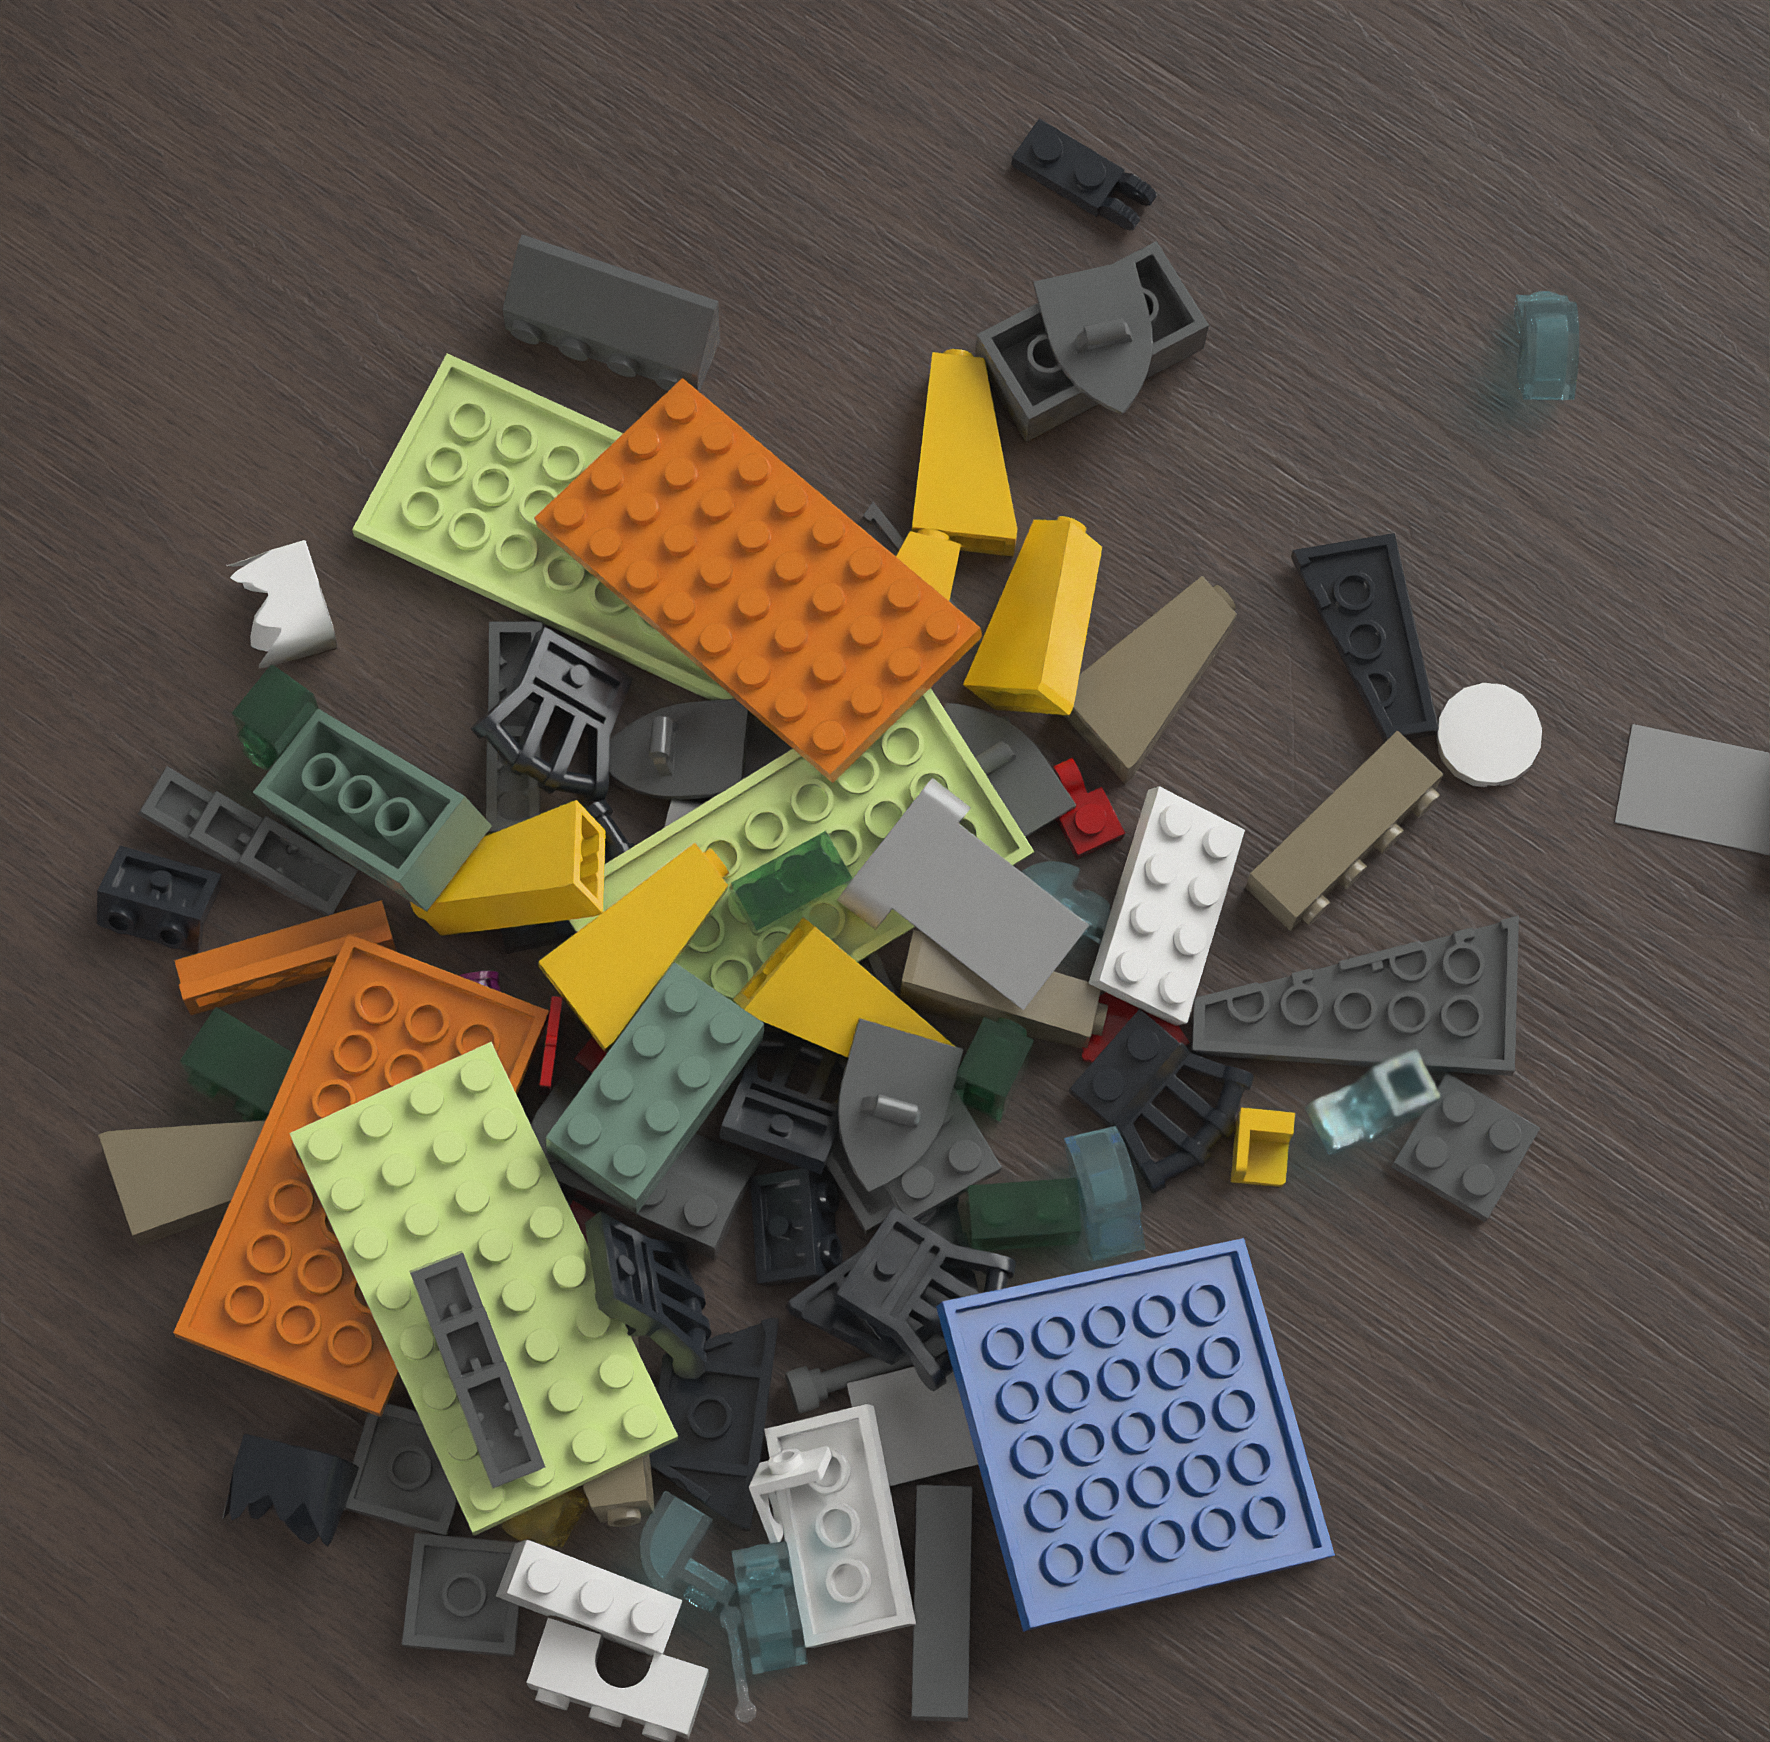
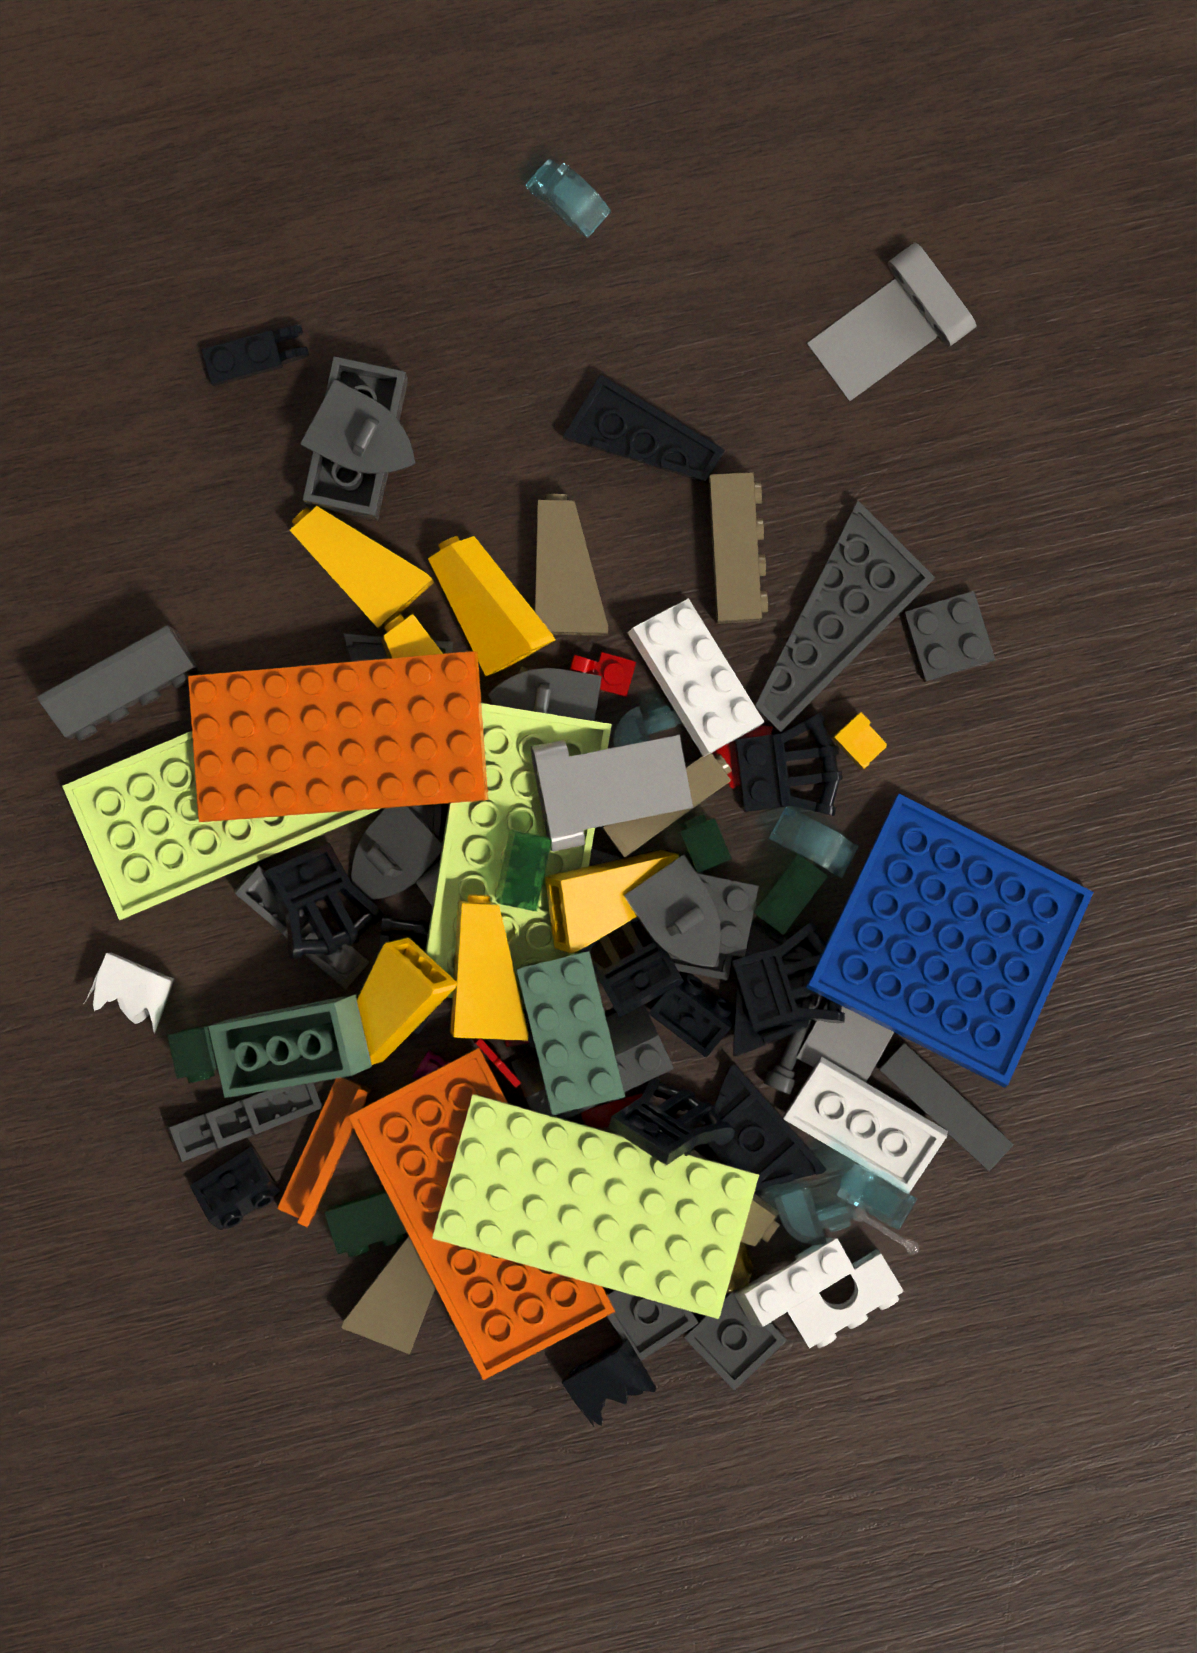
camera: 45 degrees left, 15 degrees up
(477, 1369) = (641, 1250): dark grey slope -> none
(781, 1472) = (819, 1131): white bracket -> none
(1375, 1104) = (889, 666): clear light blue brick -> none
(1488, 735) = (748, 424): white tile -> none

